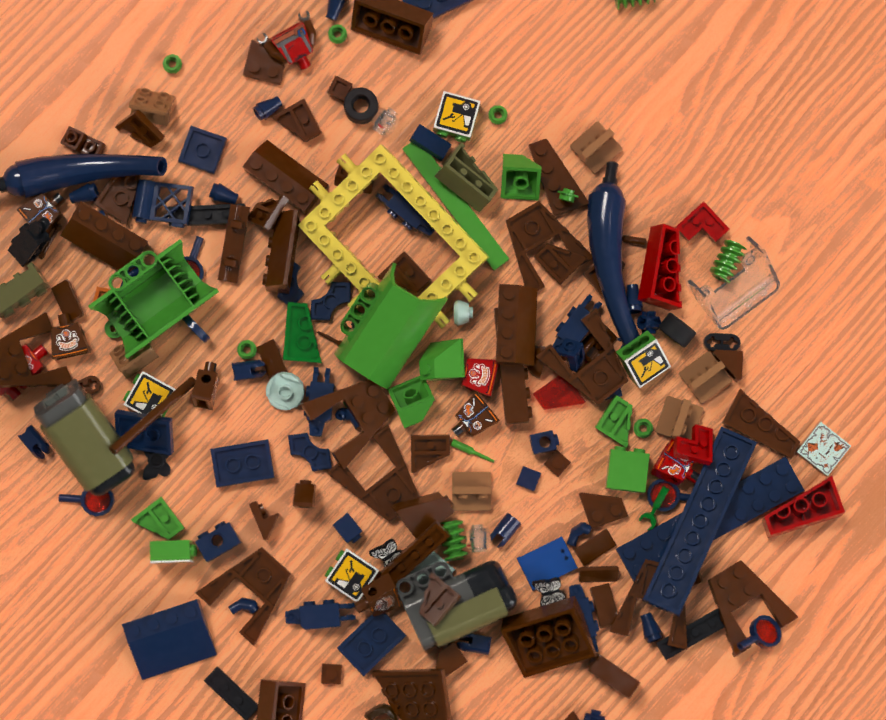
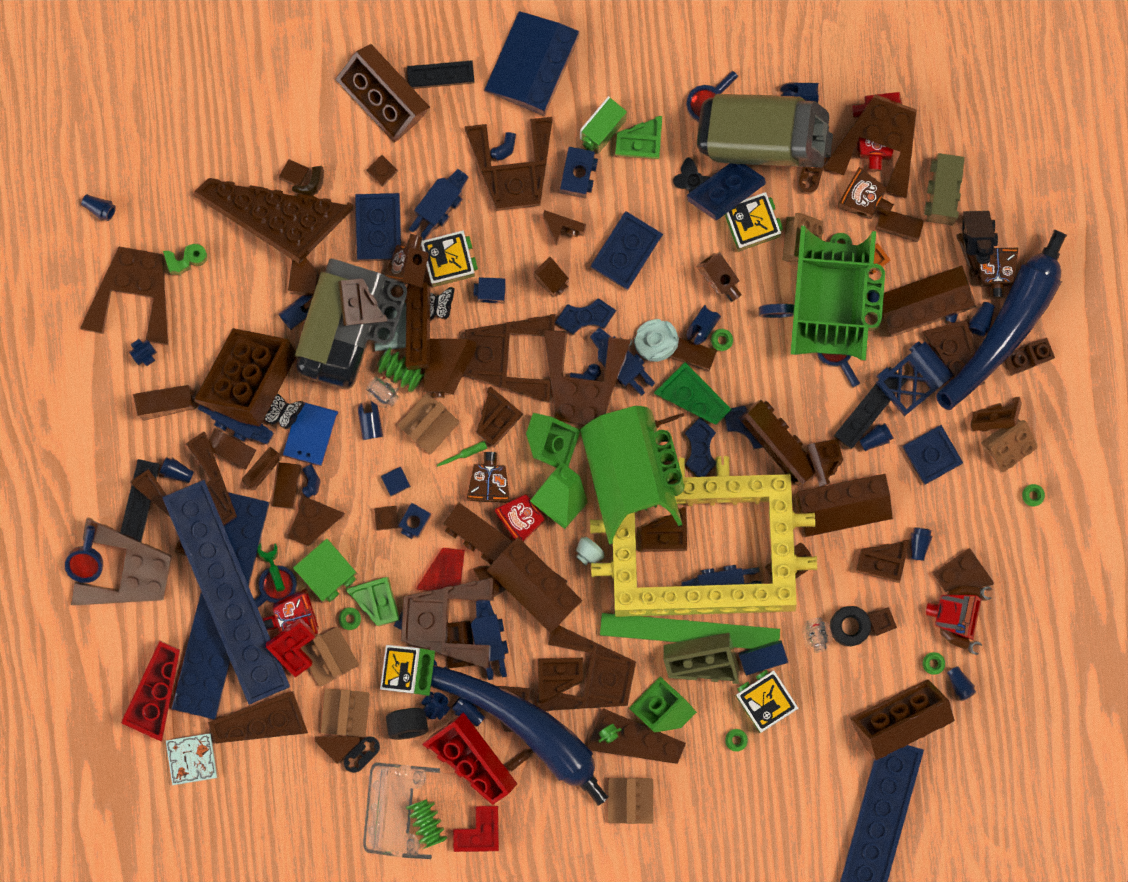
camera: 135 degrees right, 0 degrees up
(152, 416) = (732, 205): reddish brown piece -> none
(234, 243) = (824, 409): reddish brown hinge -> none
(574, 352) = (467, 614): dark blue bracket -> none

